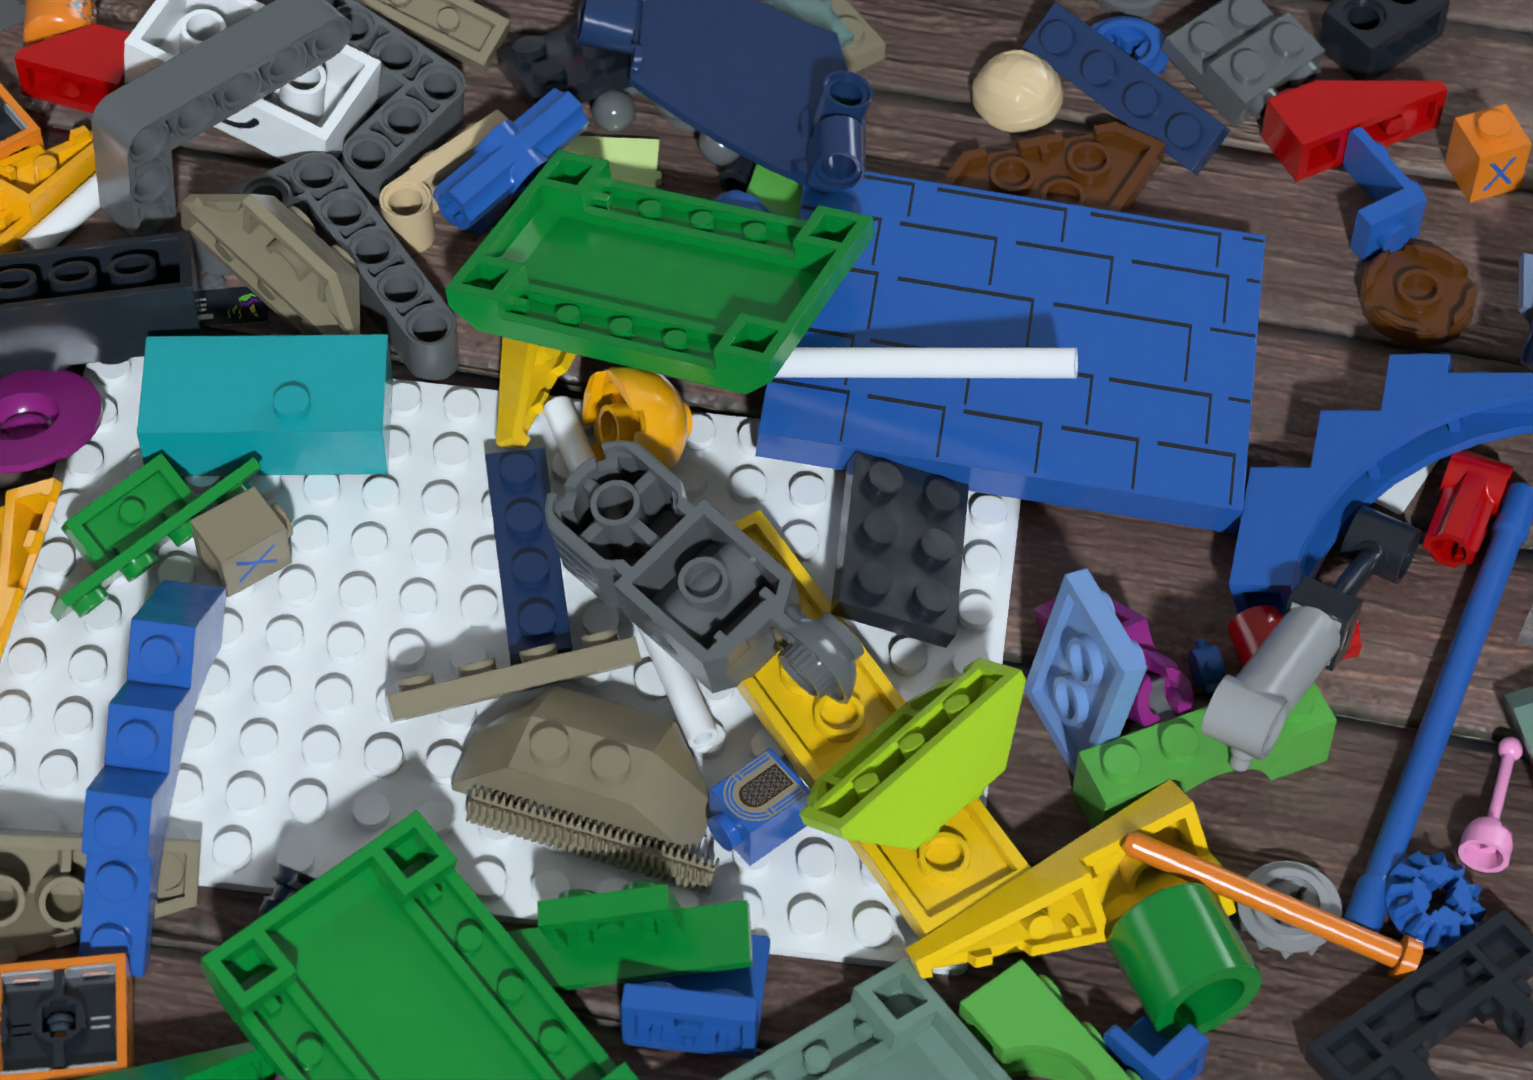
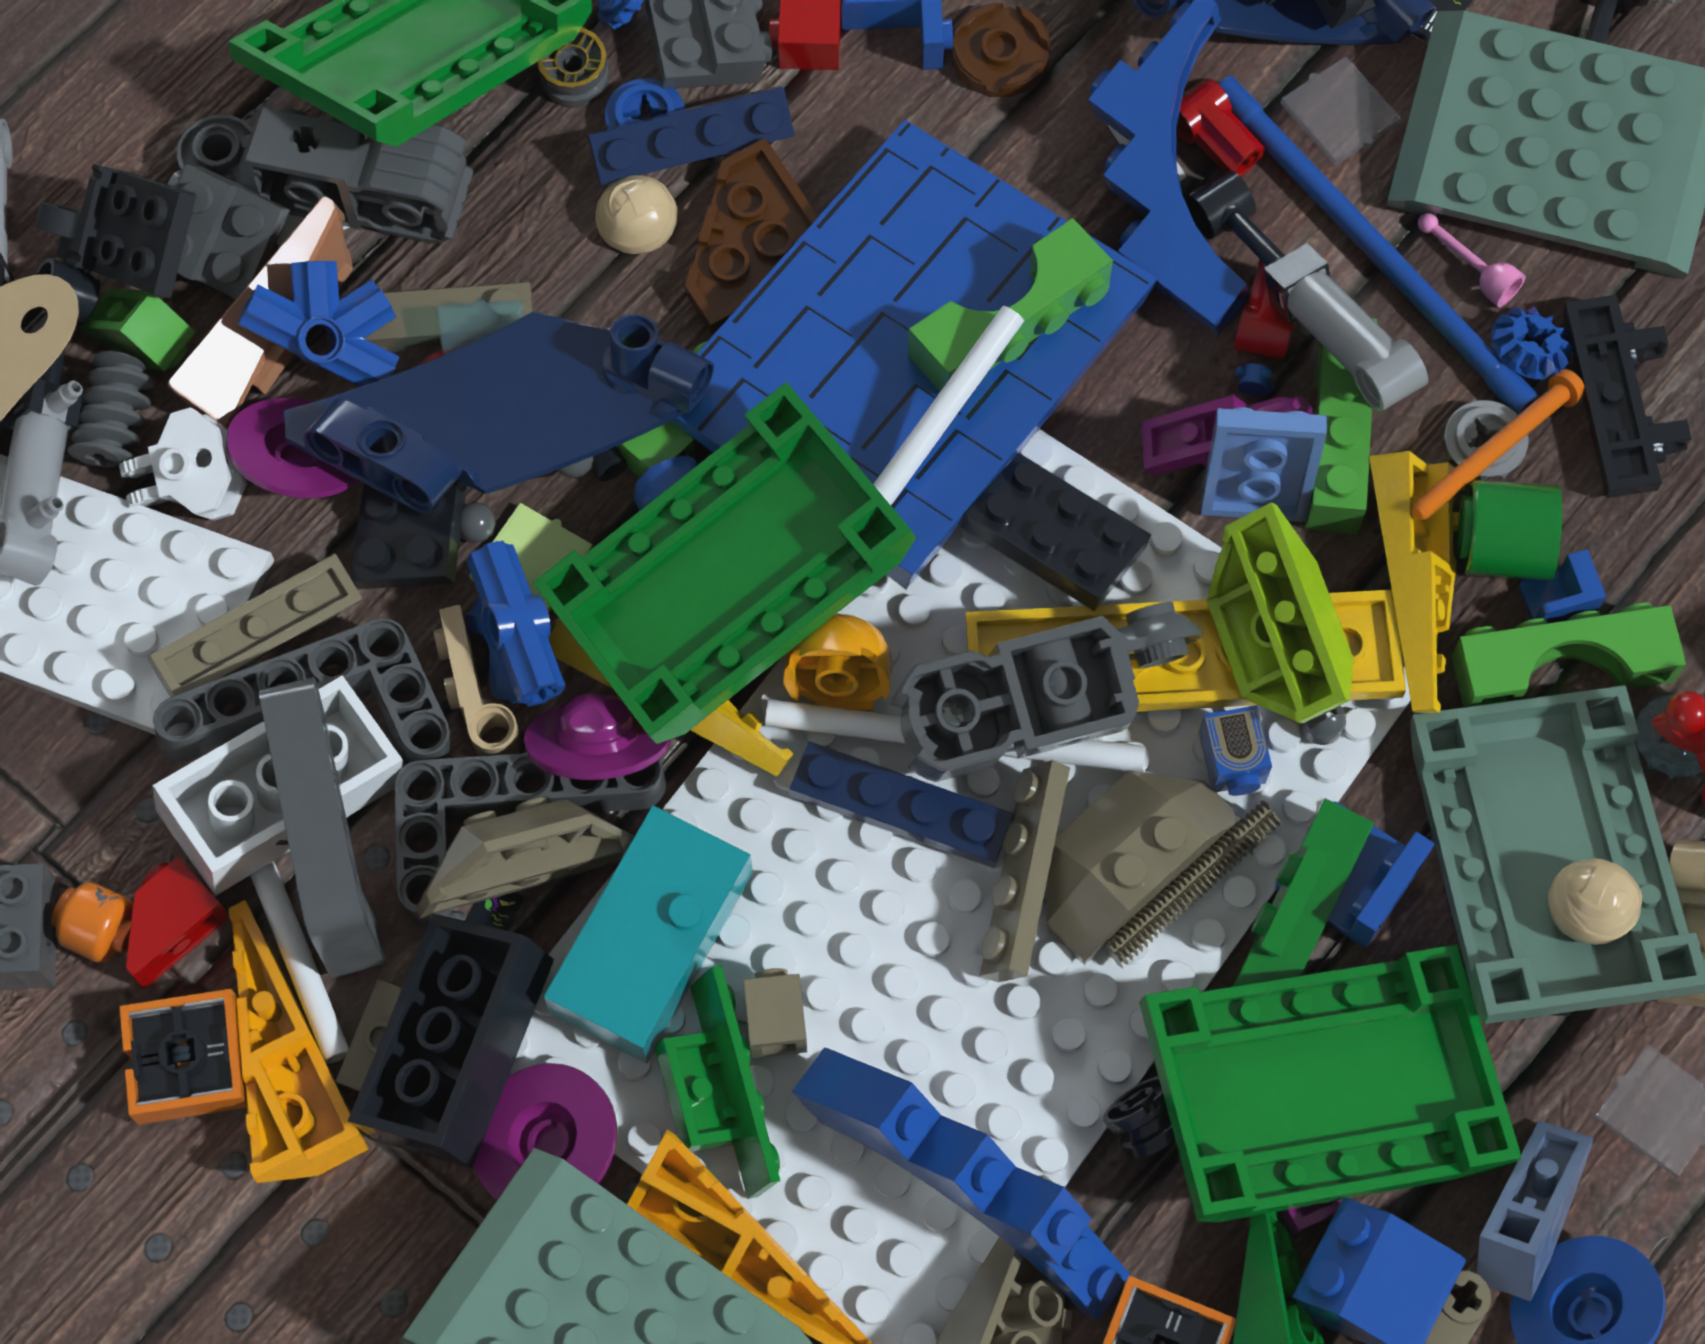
camera: 60 degrees left, 15 degrees up
(421, 267) = (591, 739): none -> magenta hat
(843, 890) = (1327, 730): none -> dark grey hinge
(1162, 415) = (1065, 273): none -> bright green arch

